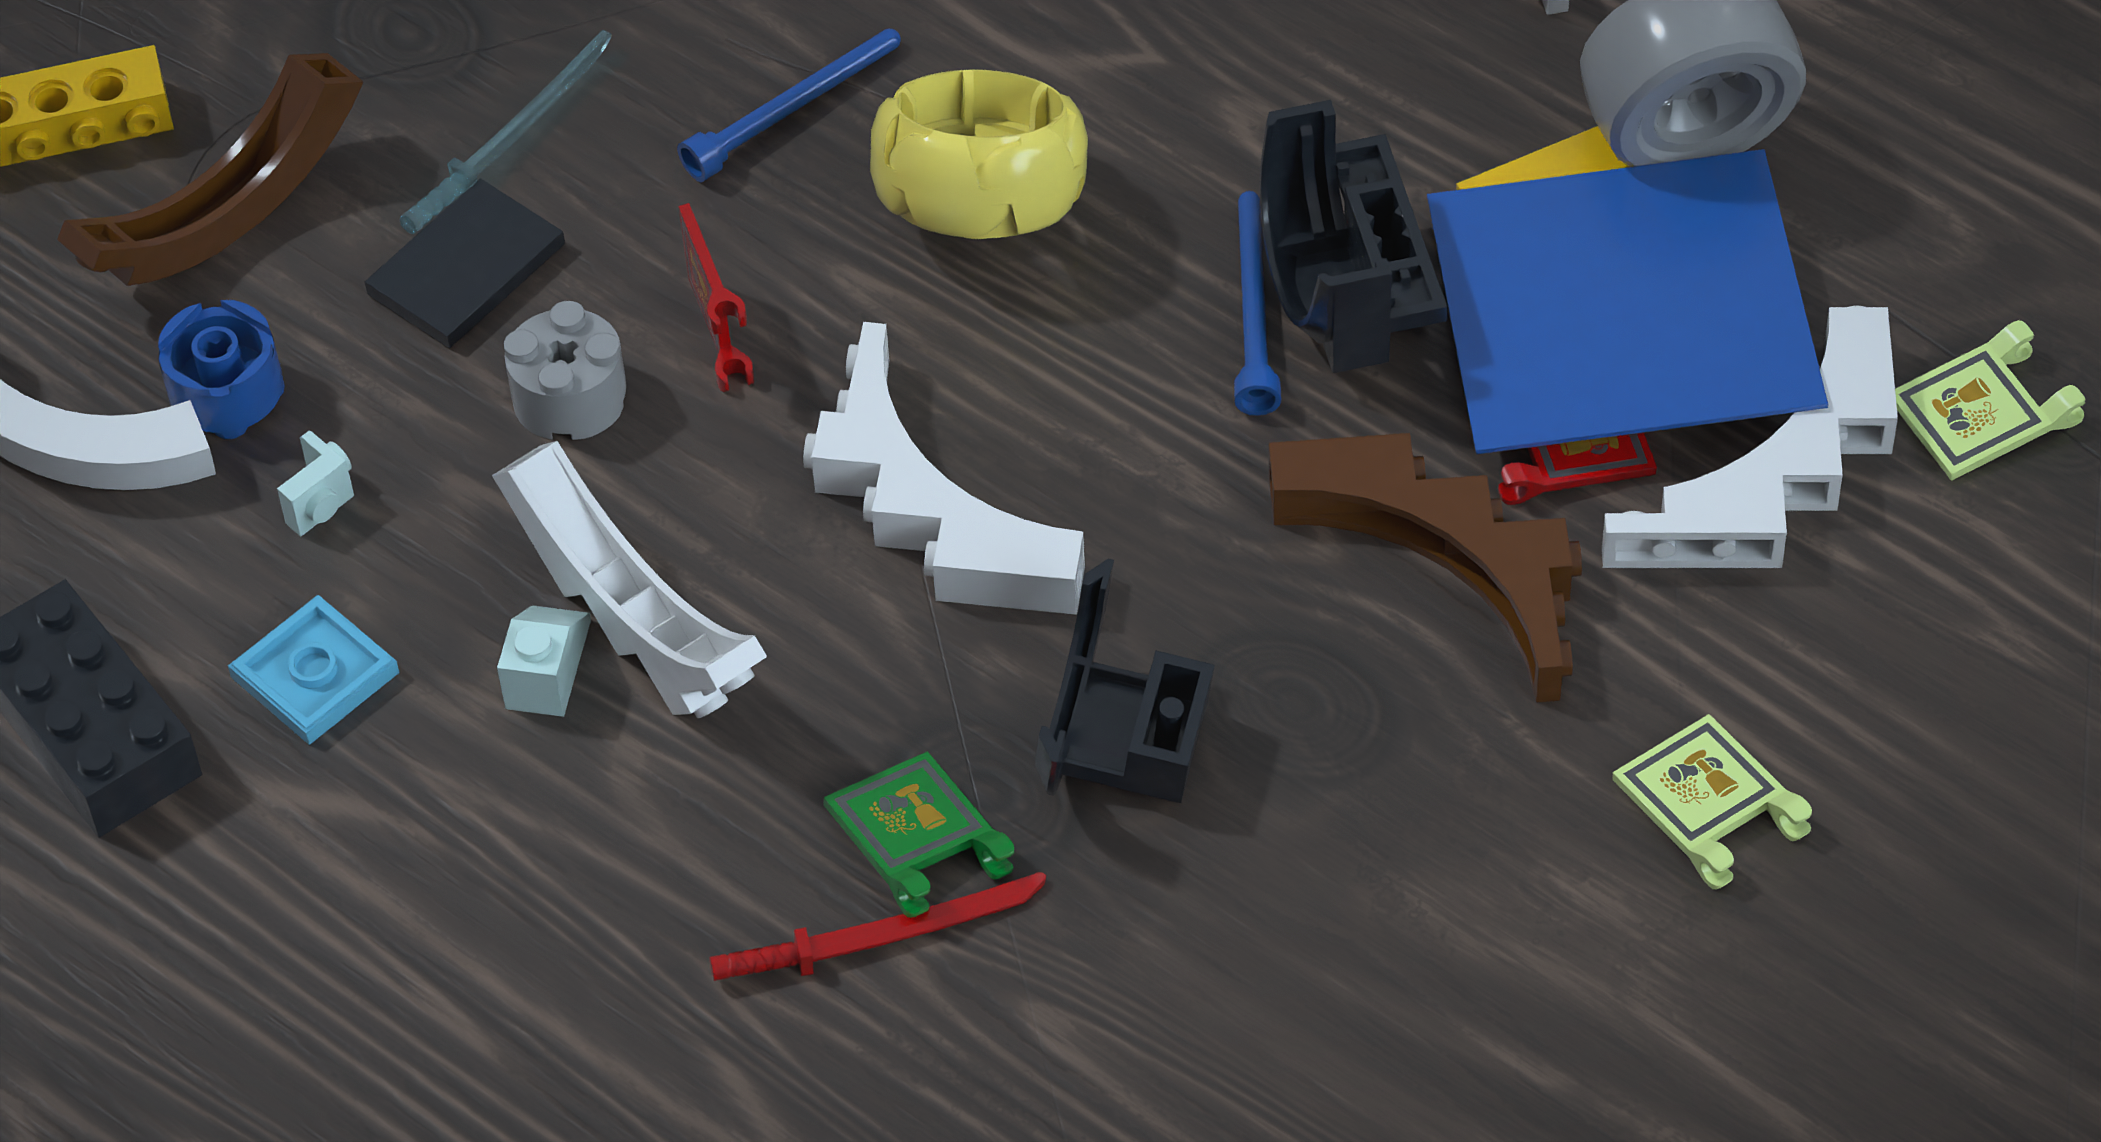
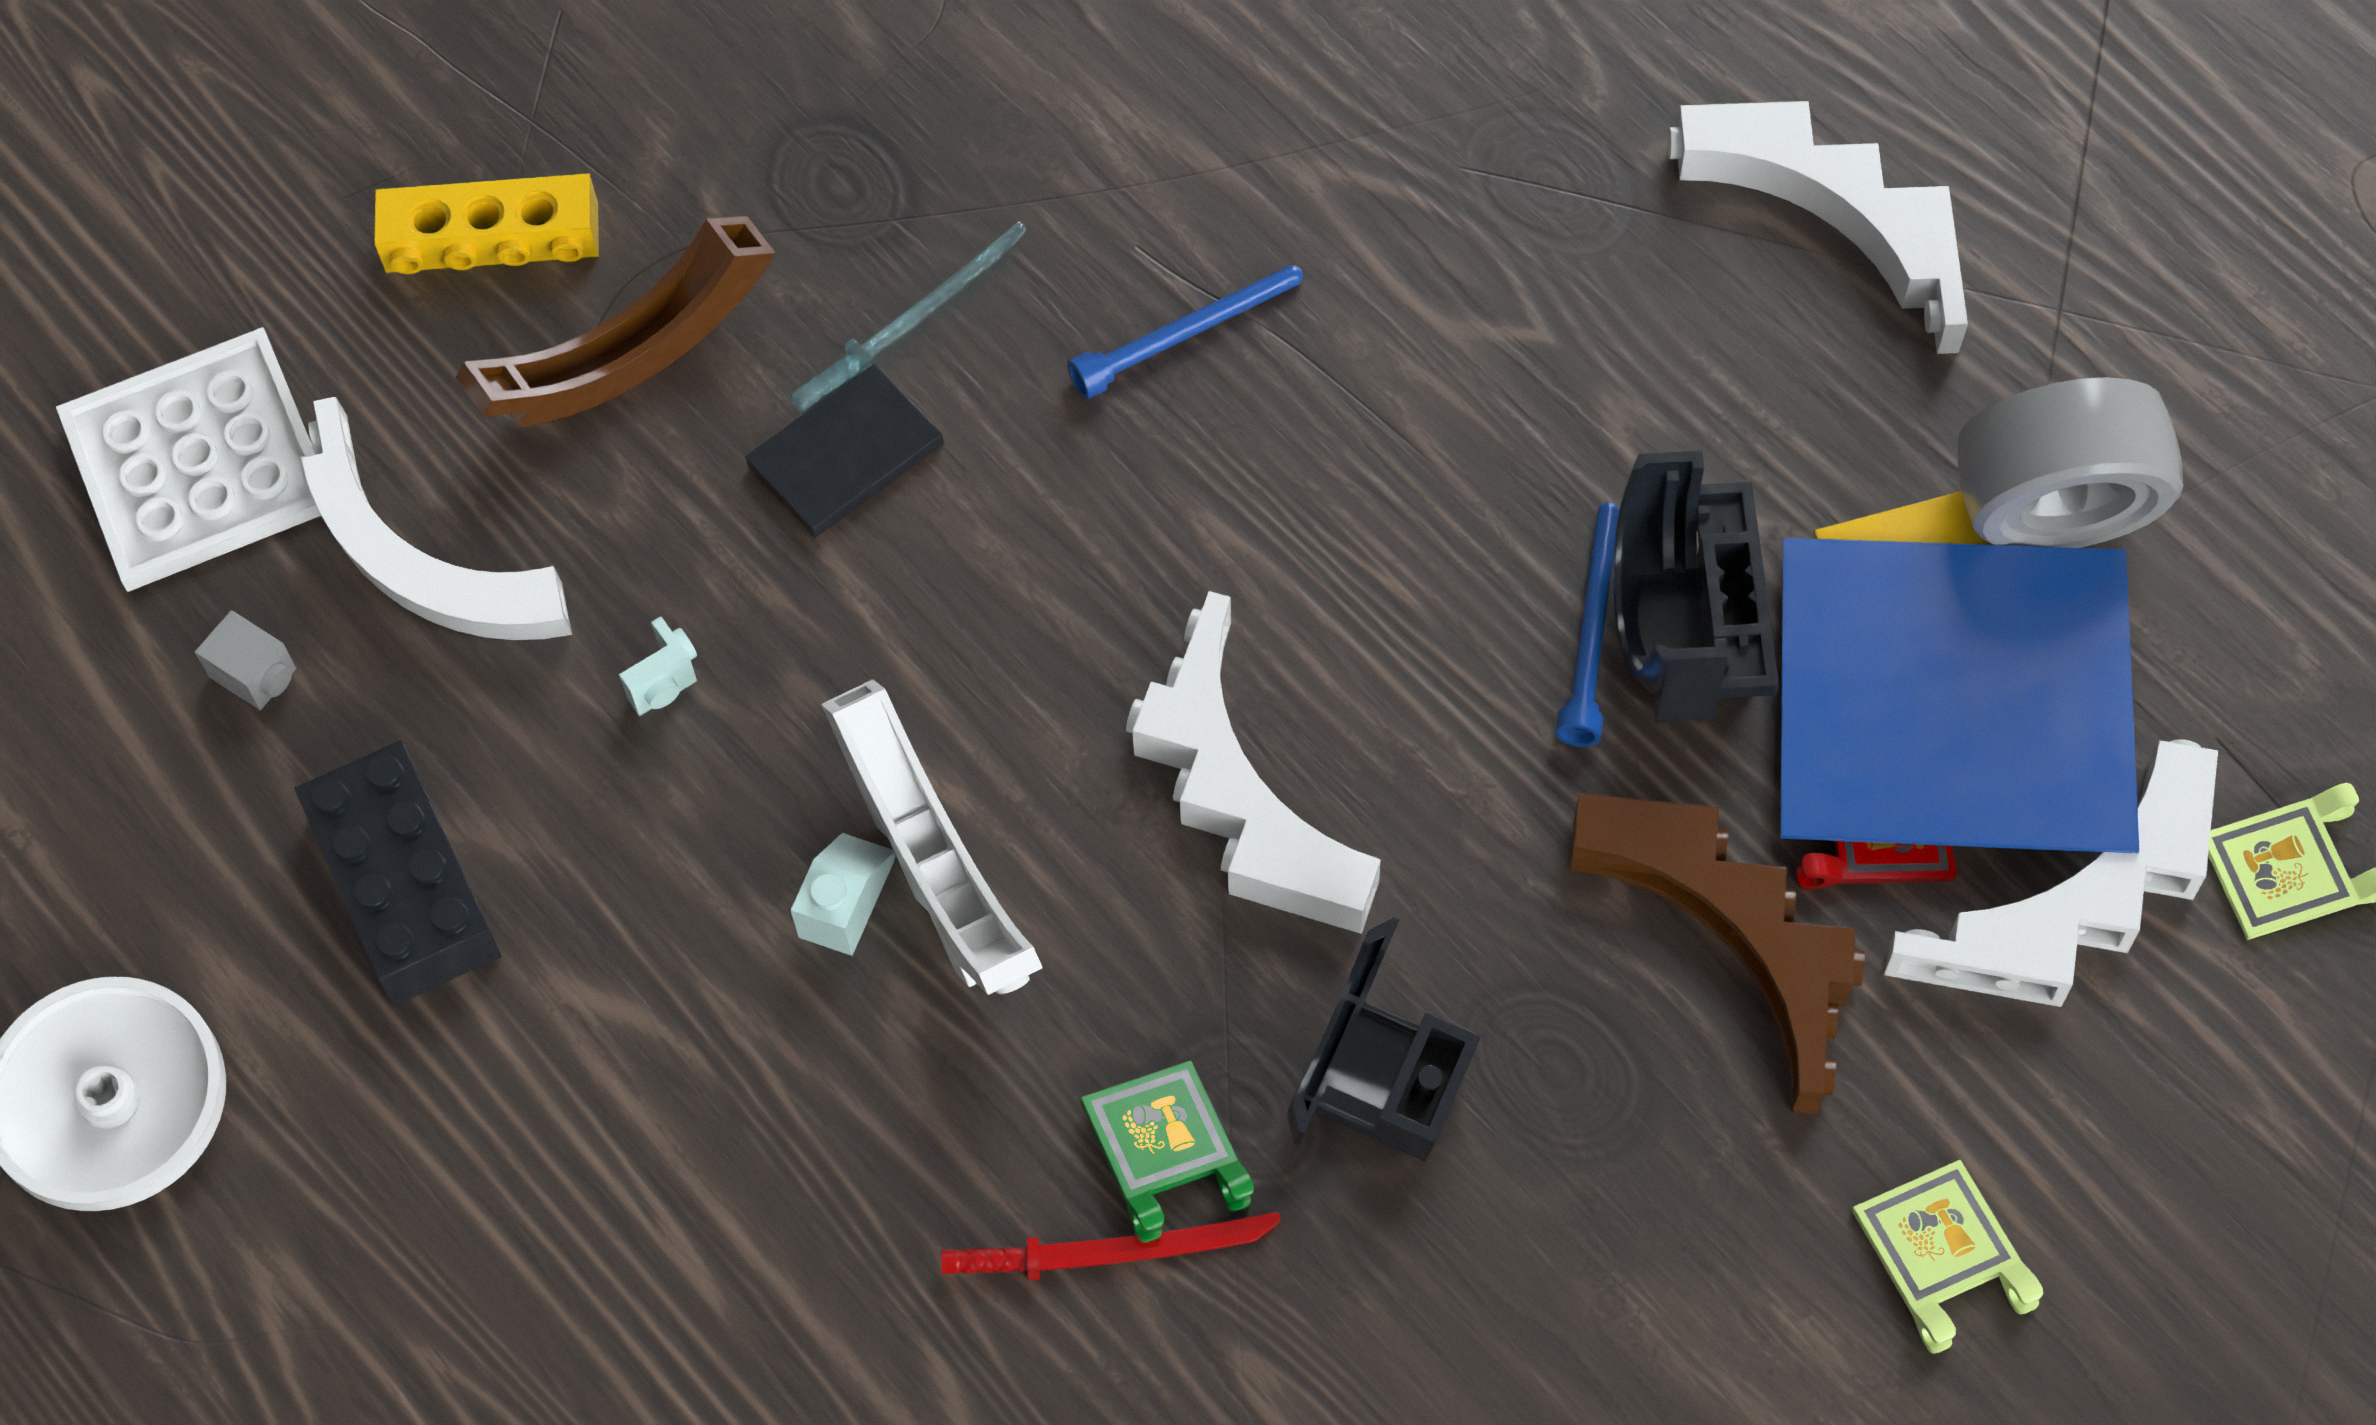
camera: 10 degrees right, 10 degrees up
(222, 364) = (591, 529): blue brick -> none
(313, 669) = (624, 864): medium azure tile -> none
(565, 372) = (916, 591): light grey brick -> none
(714, 301) = (1072, 556): red flag -> none
(978, 153) = (1351, 431): light yellow wheel -> none

